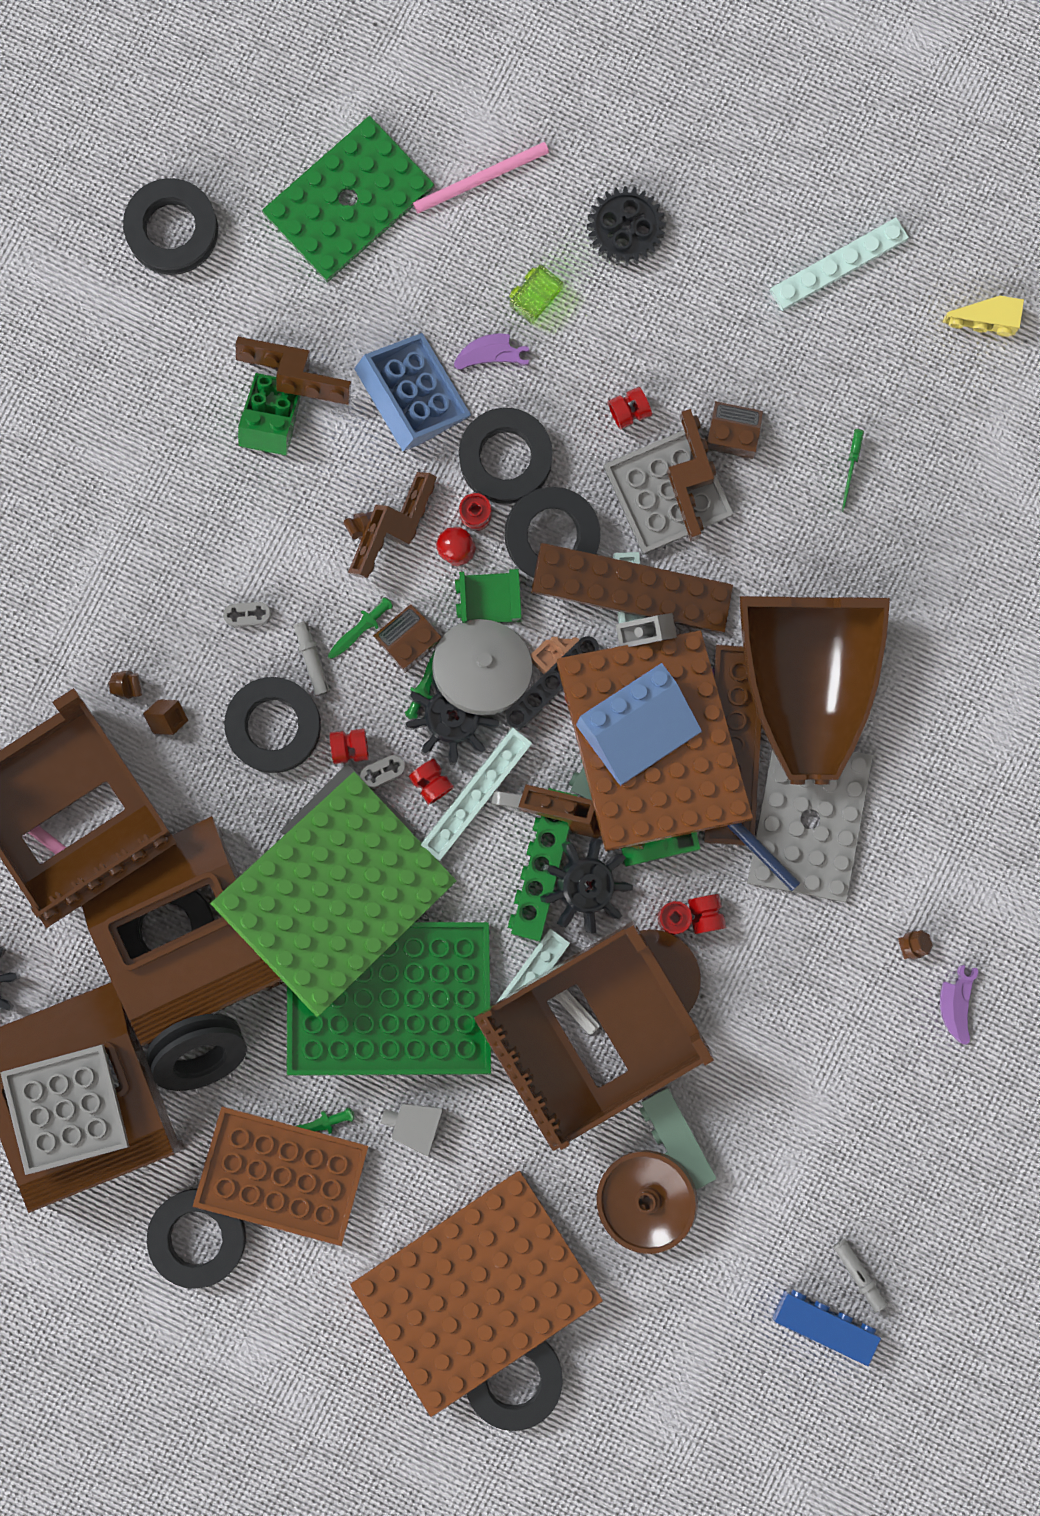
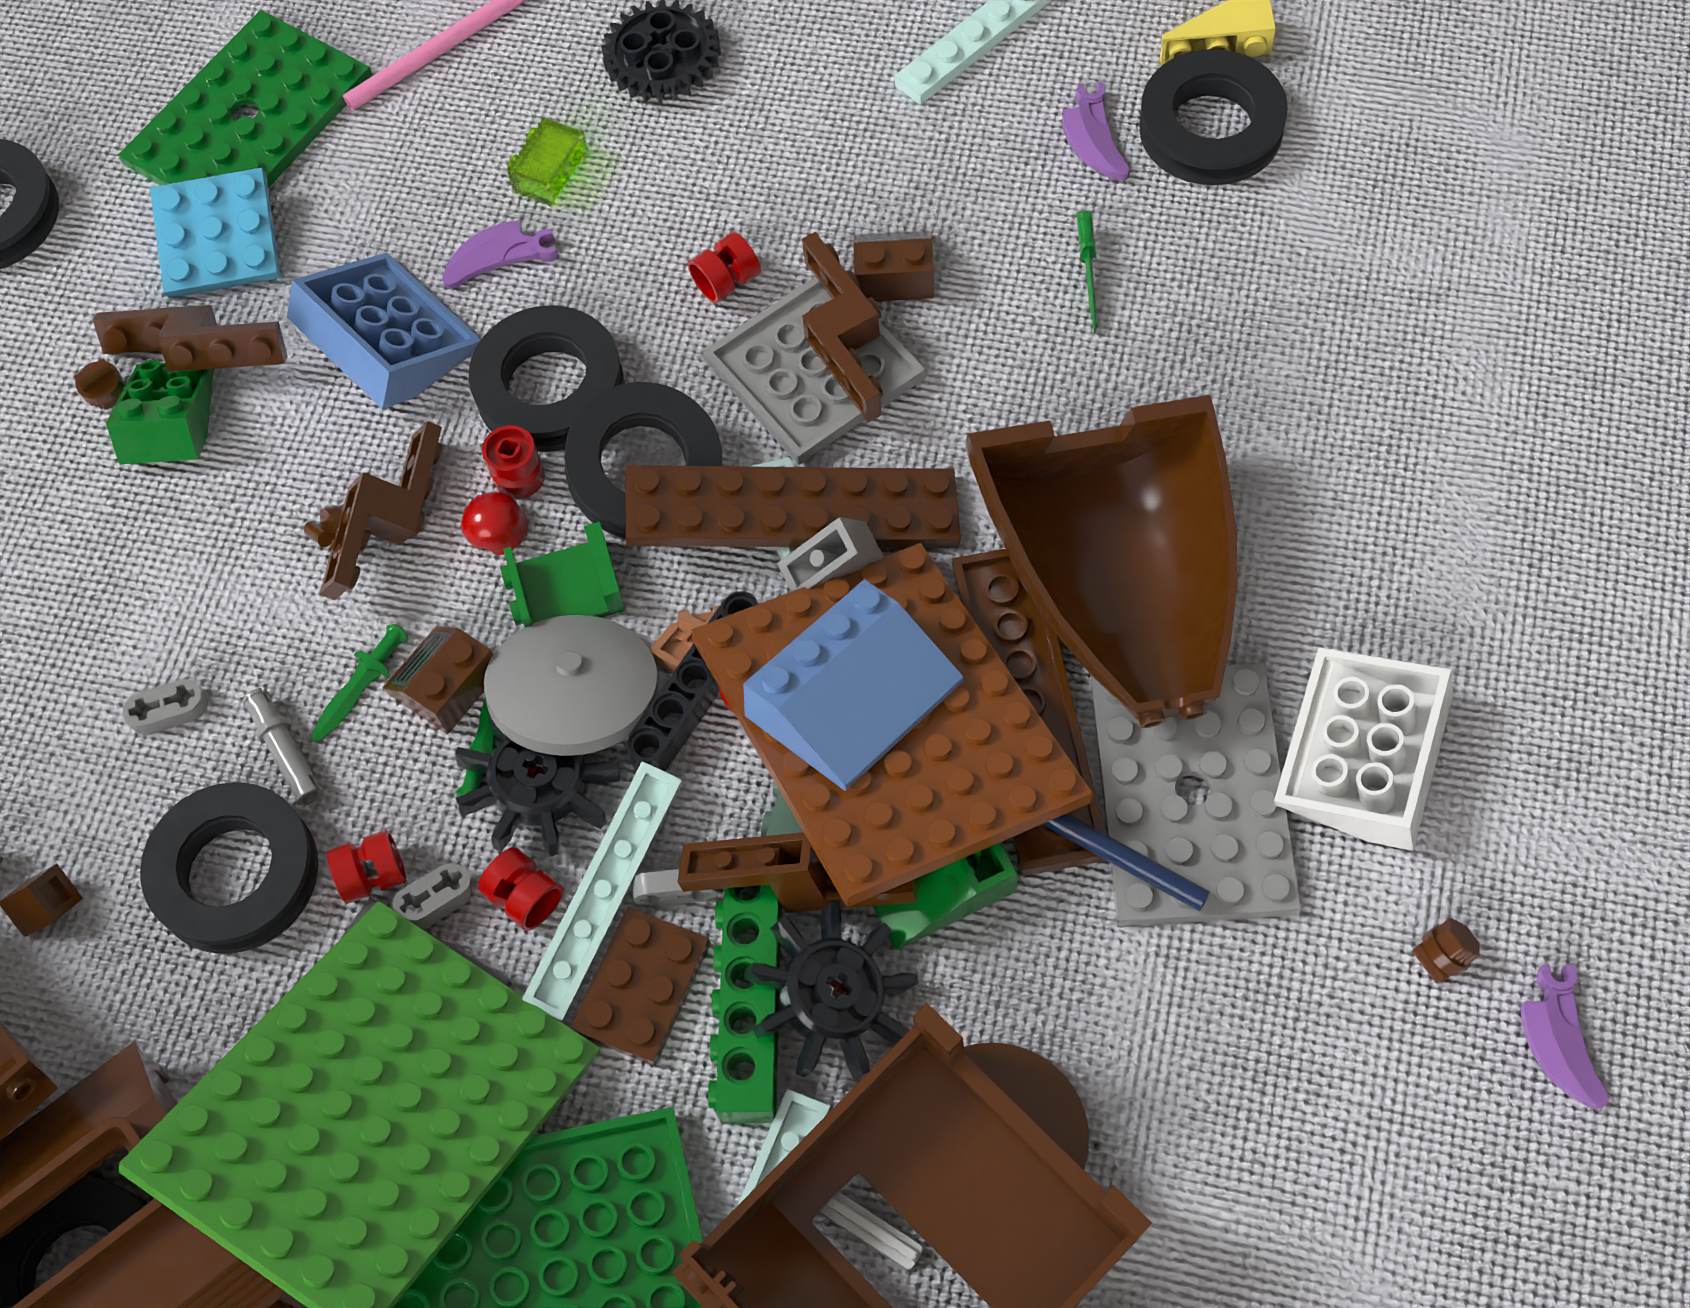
camera: 10 degrees left, 20 degrees down
(232, 385) = (99, 384): none -> reddish brown piece
(317, 291) = (215, 232): none -> medium azure plate
(484, 850) = (641, 986): none -> reddish brown plate
(674, 917) = (1006, 1009): red wheel -> none
(706, 913) = (1063, 992): red wheel -> none
(881, 367) = (1090, 135): none -> medium lavender piece
(911, 821) = (1366, 745): none -> white slope
(972, 345) = (1218, 75): none -> black tyre

